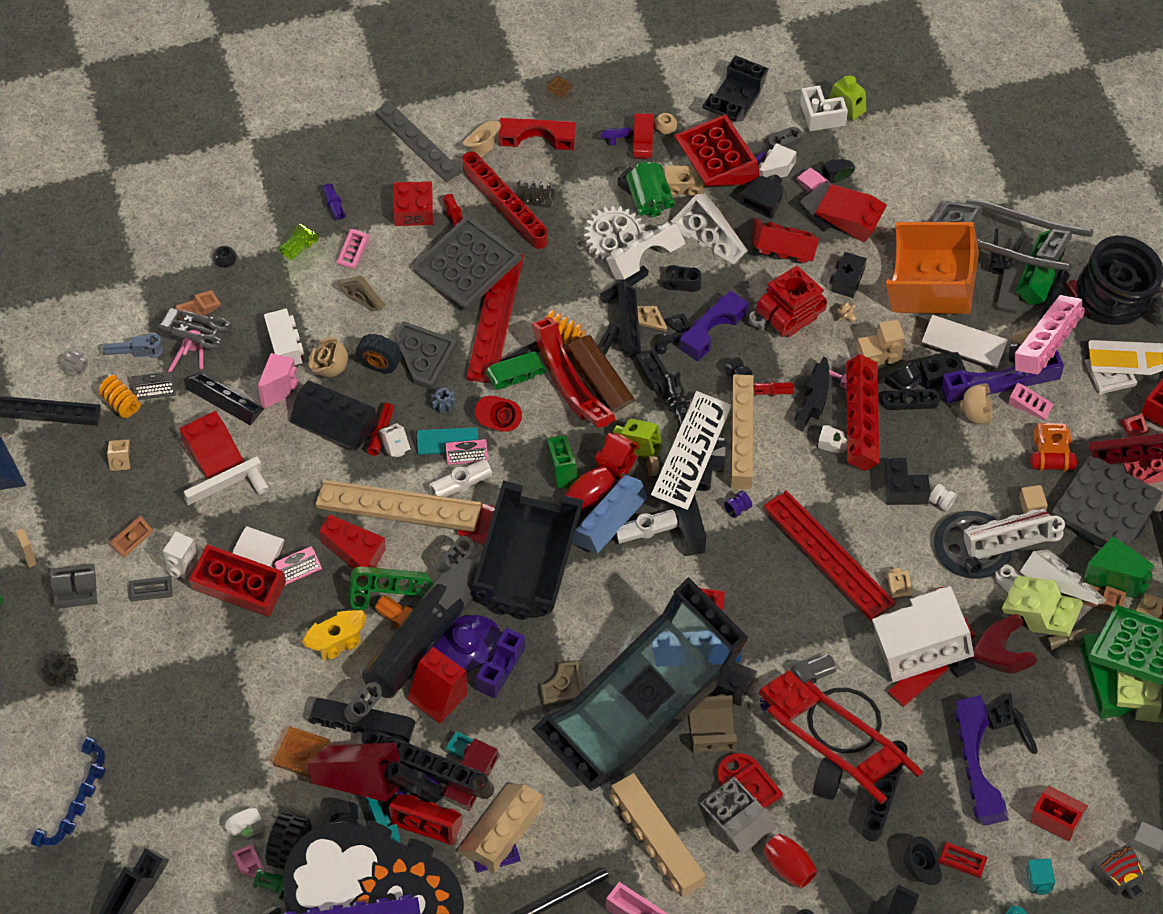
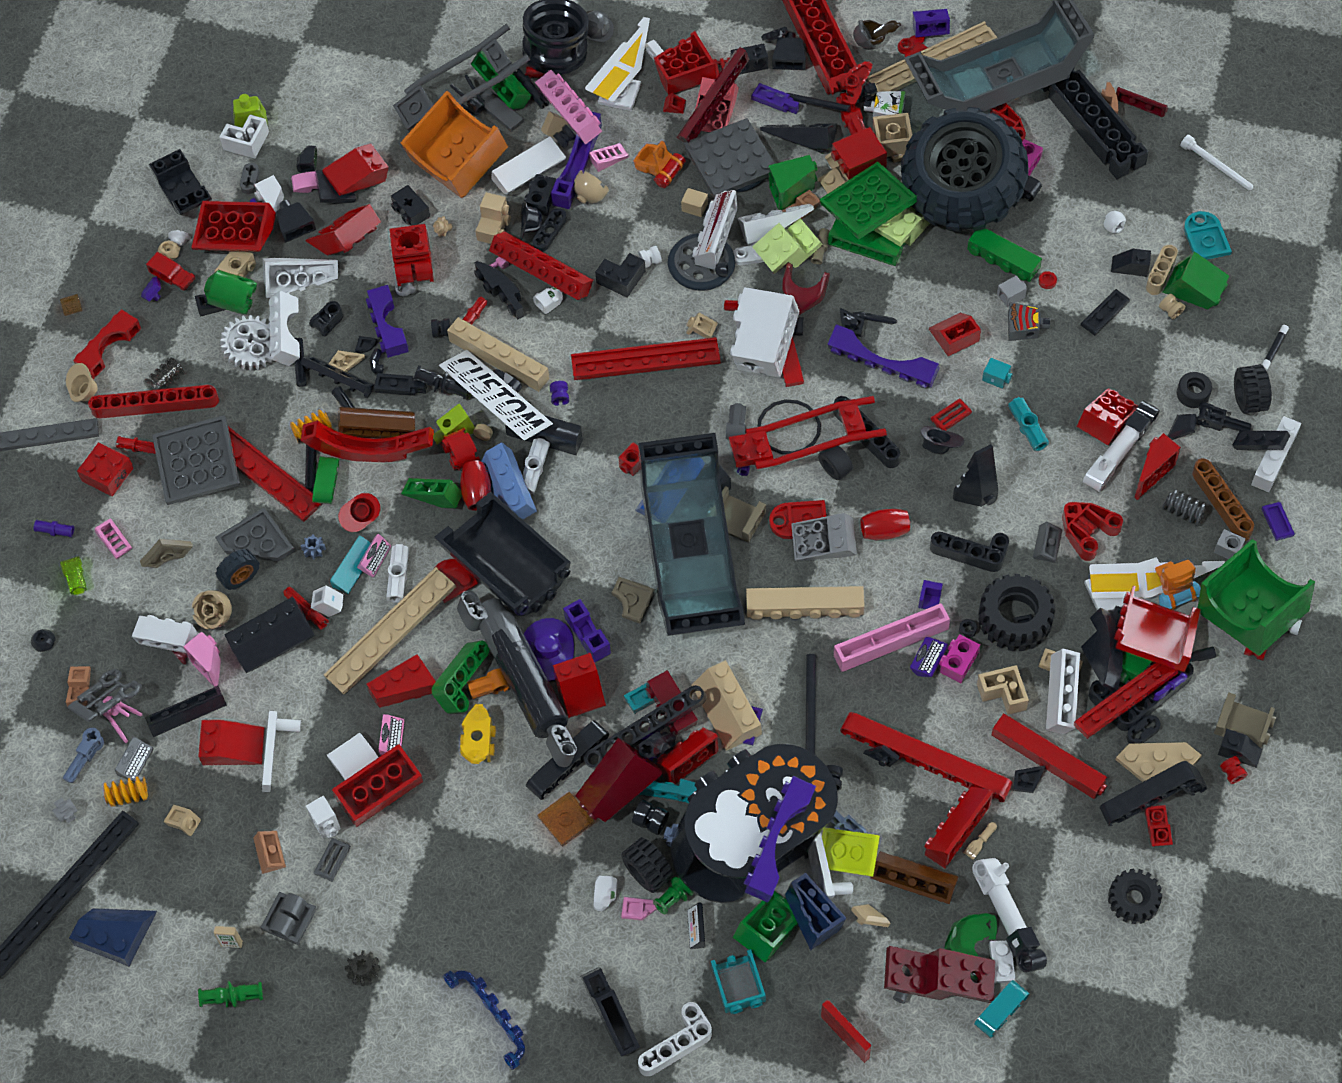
camera: 55 degrees left, 5 degrees up
(684, 123) = (179, 237): none -> white piece

